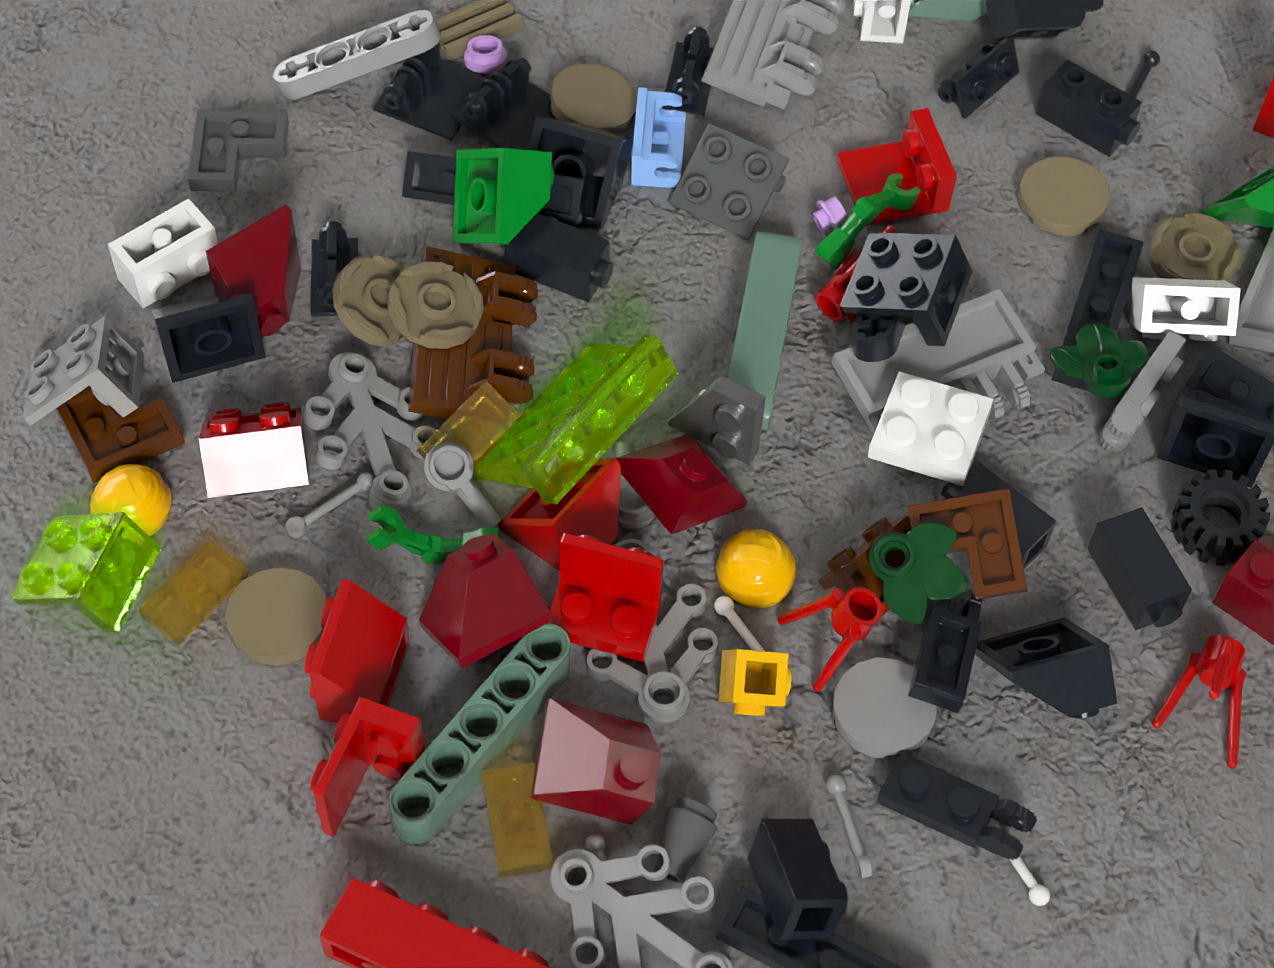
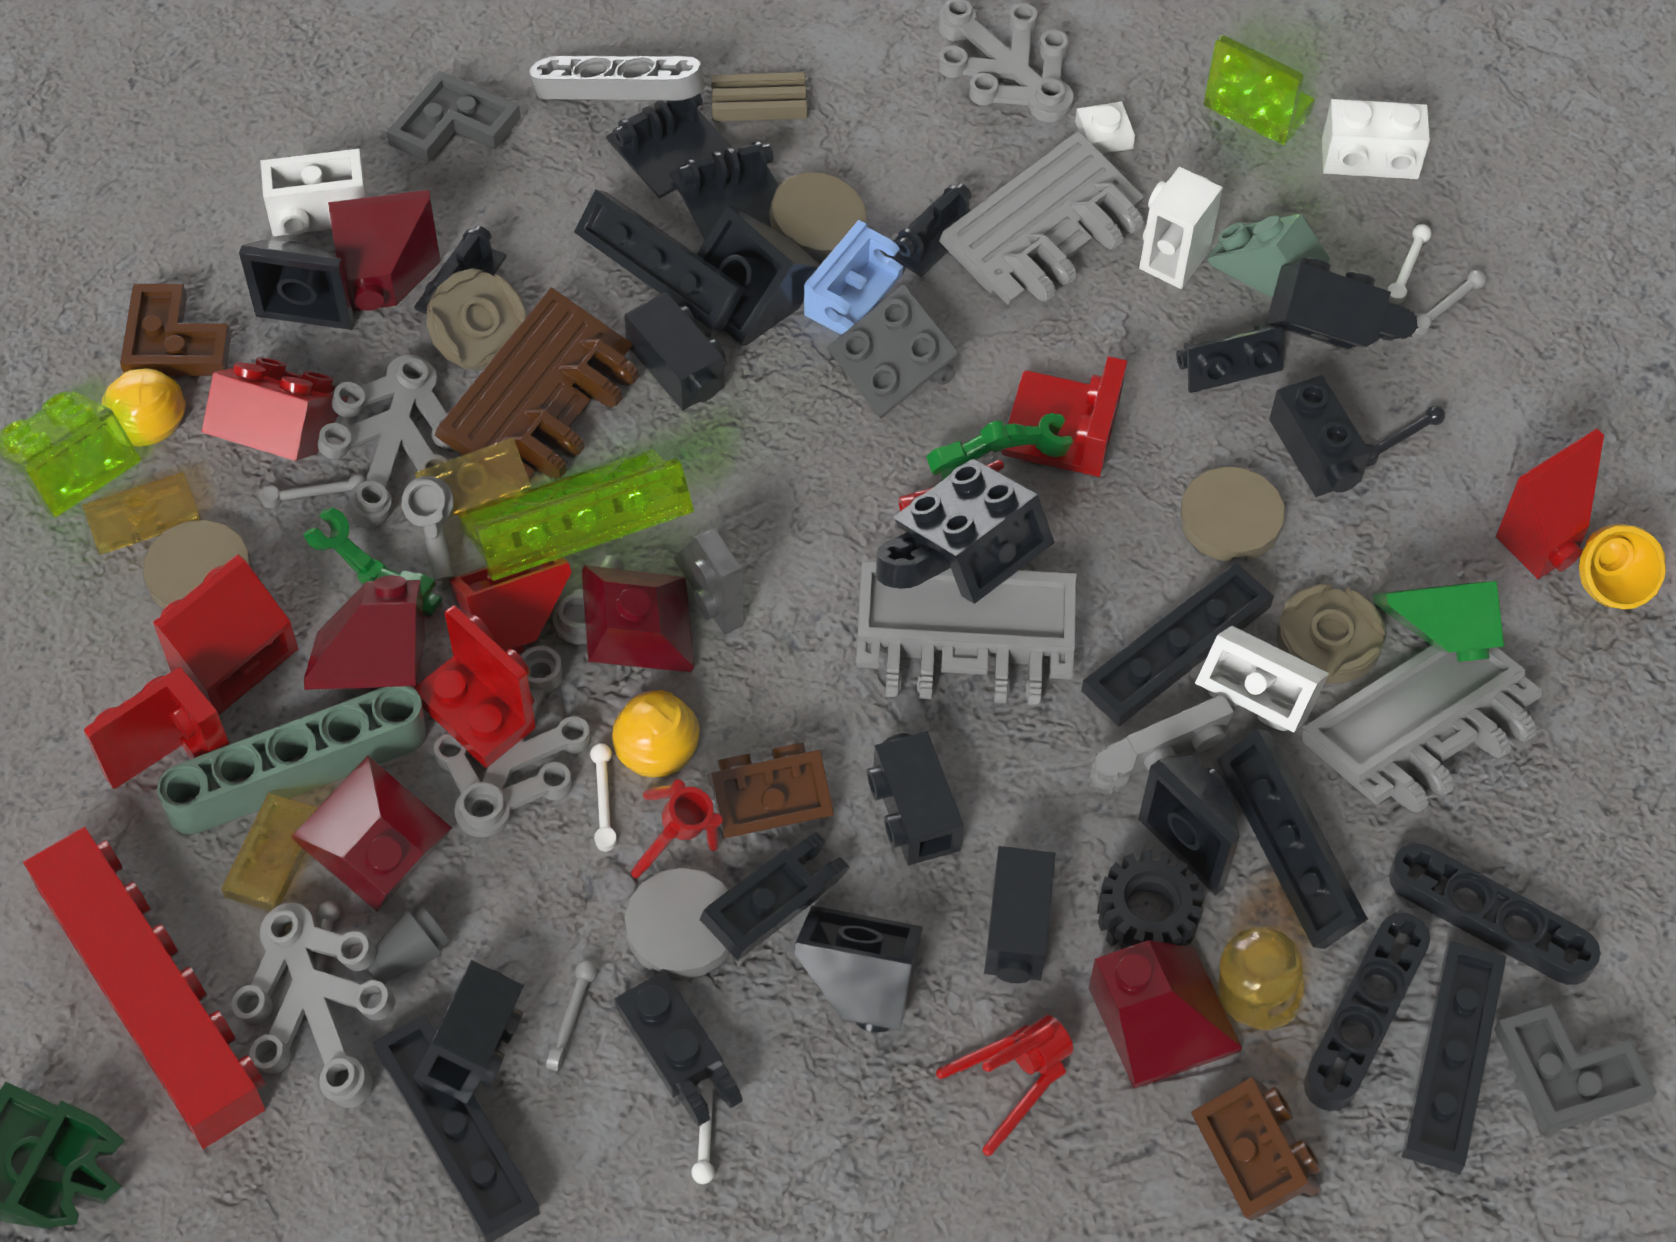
camera: 30 degrees right, 0 degrees up
(91, 357) = (189, 270): light grey bracket -> none
(435, 305) = (518, 346): dark tan tile -> none
(485, 55) = (744, 127): lavender plate -> none
(498, 192) = (649, 264): green slope -> none
(754, 680) = (565, 833): yellow brick -> none
(765, 315) = (823, 507): sand green beam -> none
(829, 215) = (968, 425): lavender plate -> none
(923, 575) = (792, 811): dark green plate -> none
(930, 428) = (900, 677): white plate -> none
(988, 533) = (876, 801): reddish brown plate -> none
(1100, 360) = (1131, 691): dark green plate -> none

